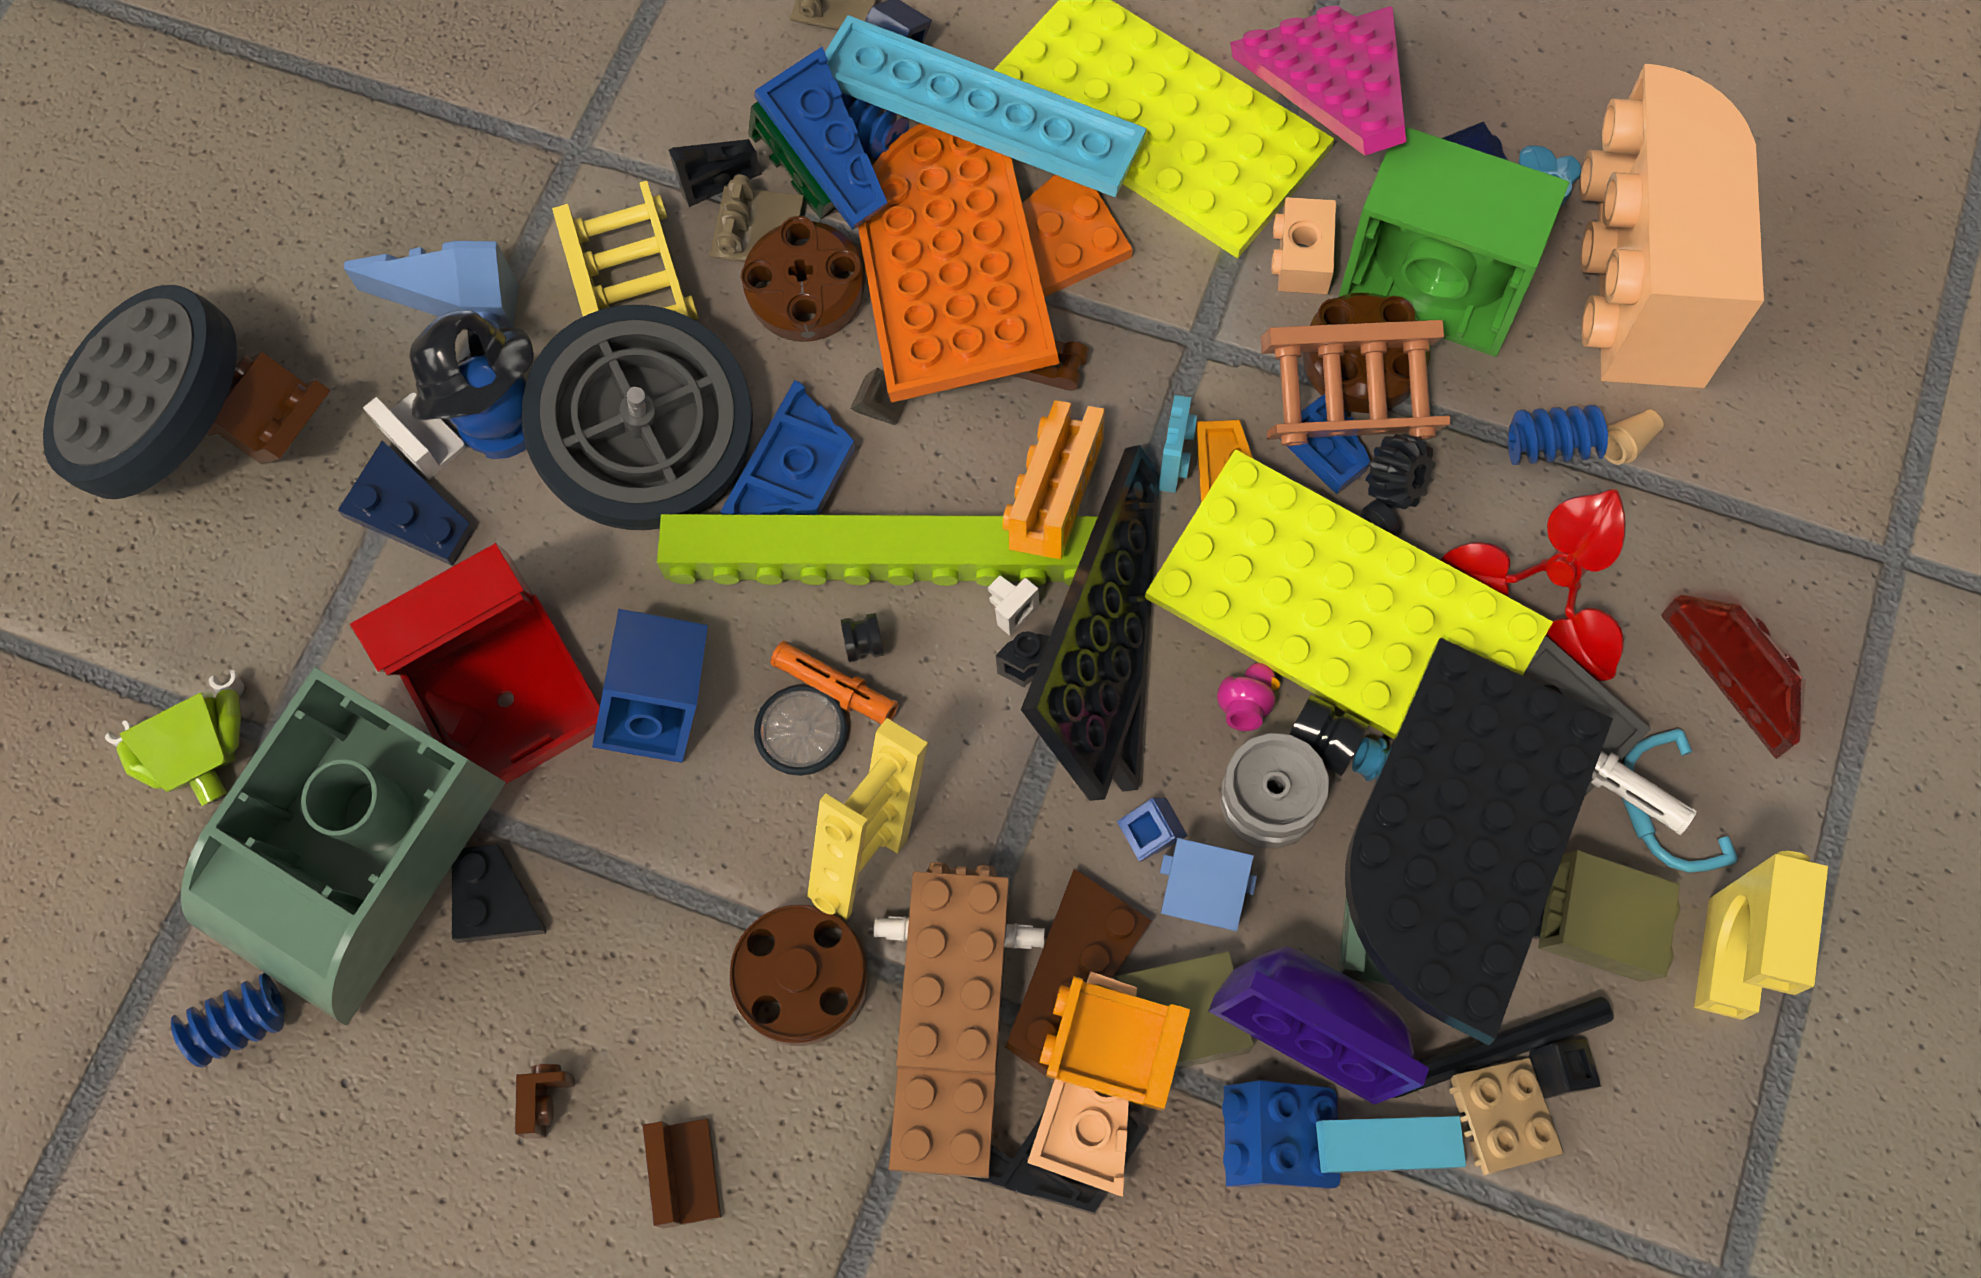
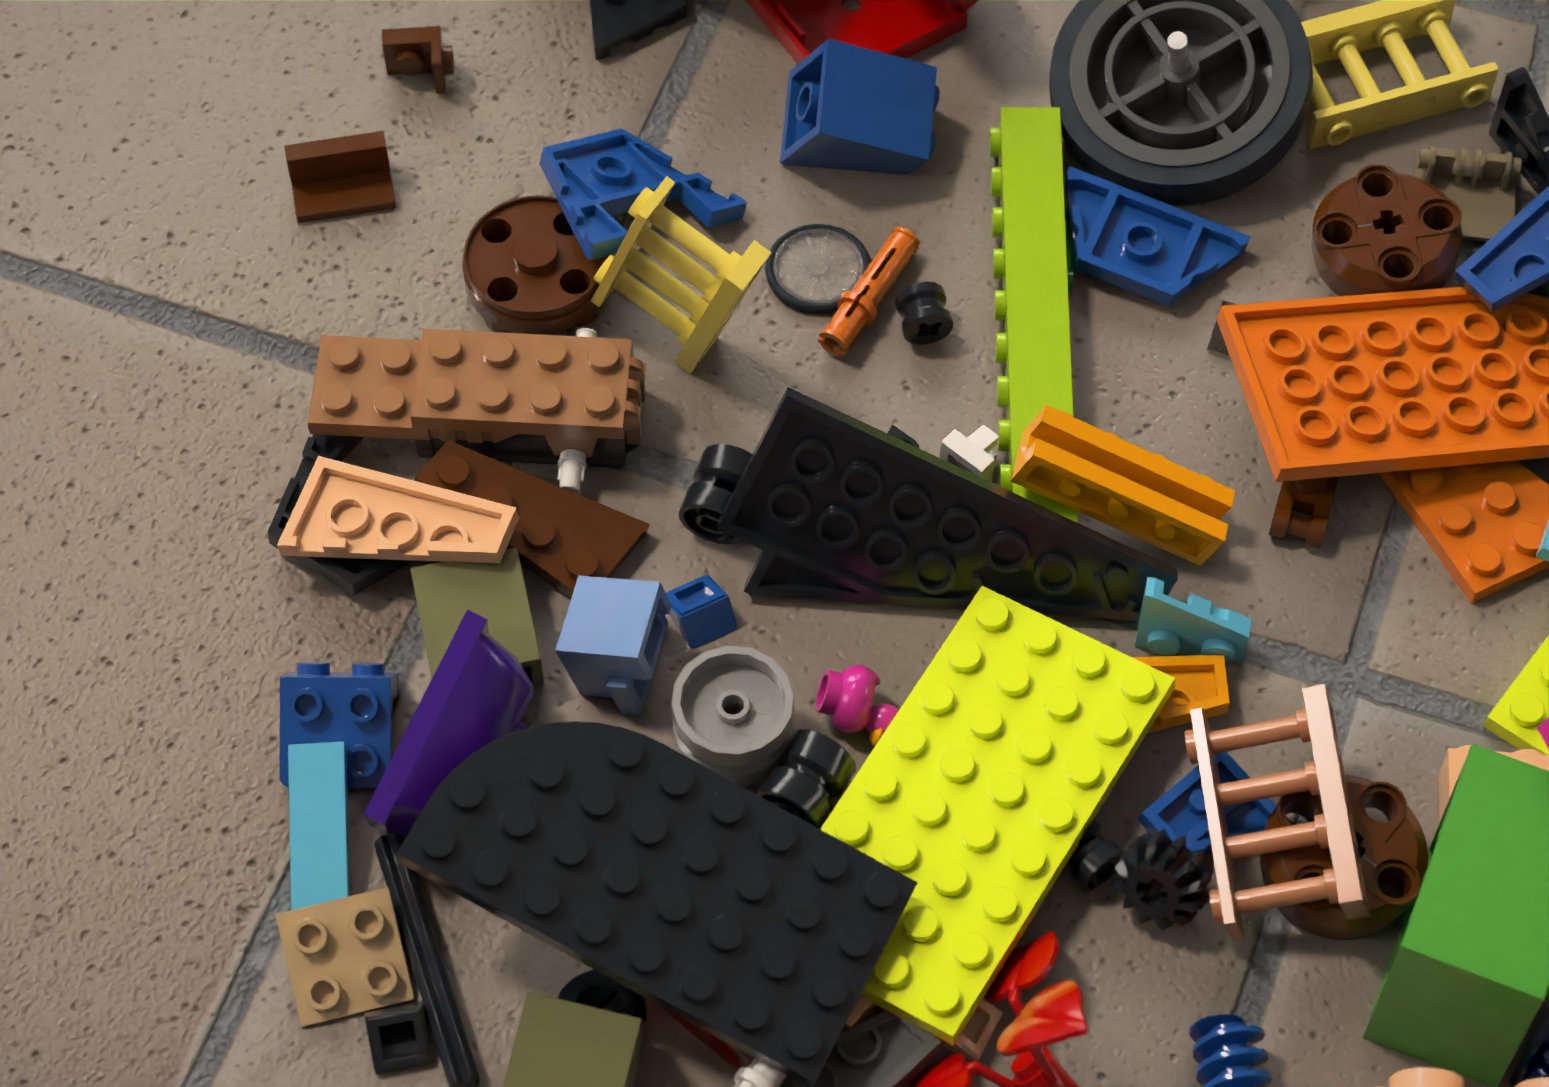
camera: 85 degrees right, 10 degrees down
(705, 907) = (607, 174): none -> blue wing
(1033, 804) = (712, 487): none -> black wheel
(1115, 1043) = (433, 522): light orange panel -> none

